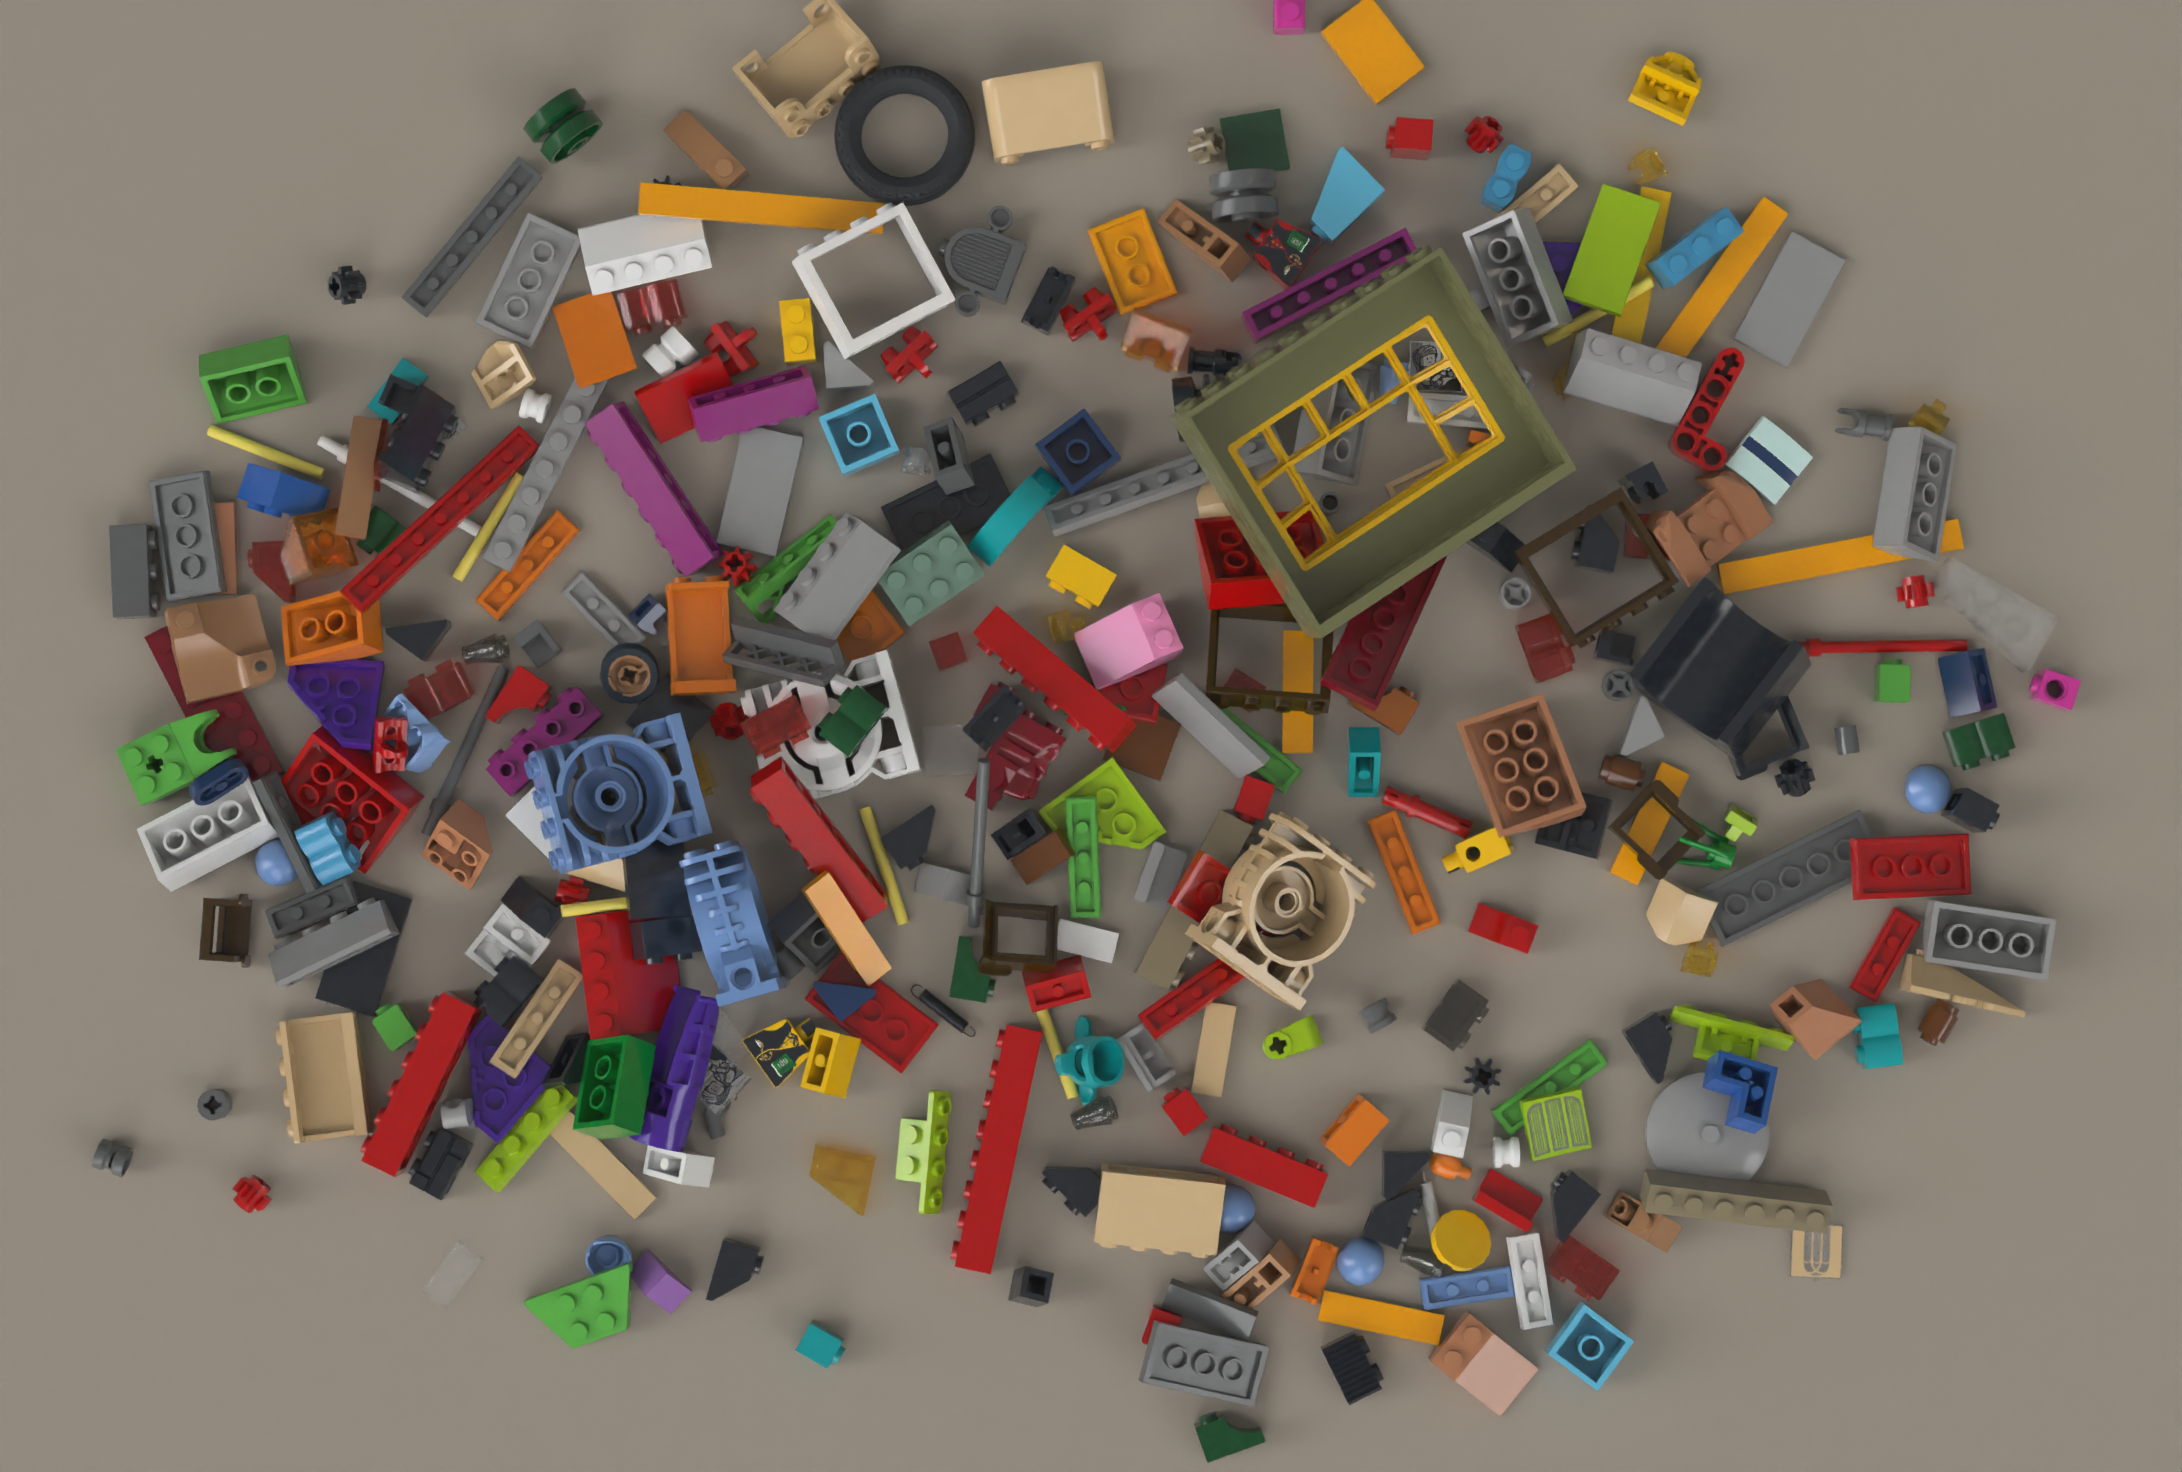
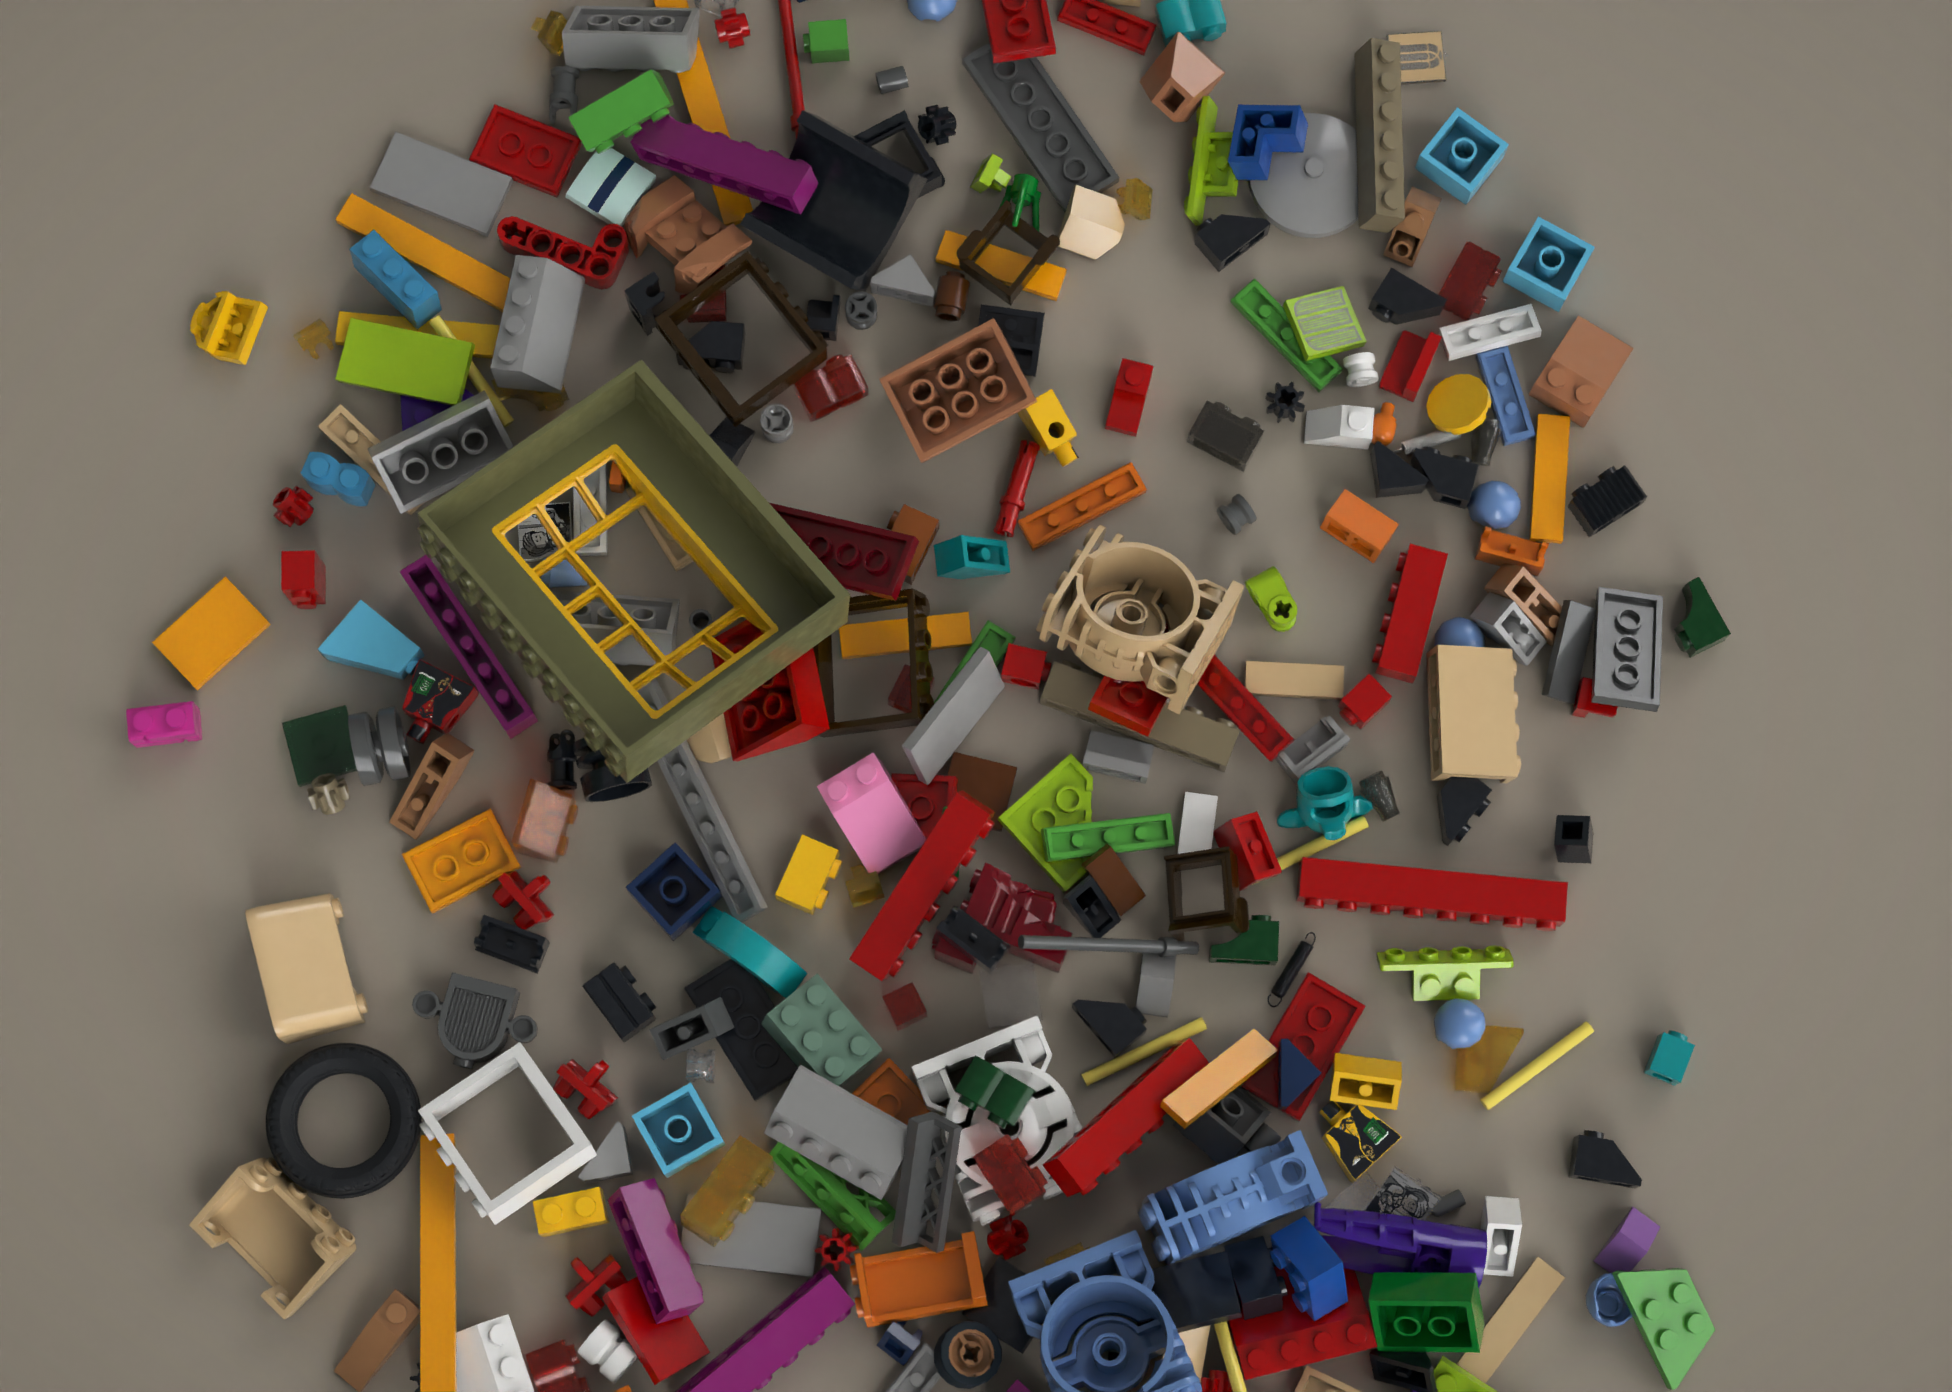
camera: 95 degrees left, 10 degrees down
(661, 990) = (1311, 1266): none -> blue brick
(798, 474) = (728, 1192): none -> clear yellow brick
(829, 1223) = (1537, 1065): none -> light yellow bar
(873, 1156) = (1459, 1023): none -> medium blue hair
(1706, 1278) = (1461, 156): none -> medium azure brick
(1773, 570) = (726, 163): none -> magenta brick
(1814, 382) = (526, 150): none -> red tile
(1835, 478) = (622, 112): none -> bright green slope

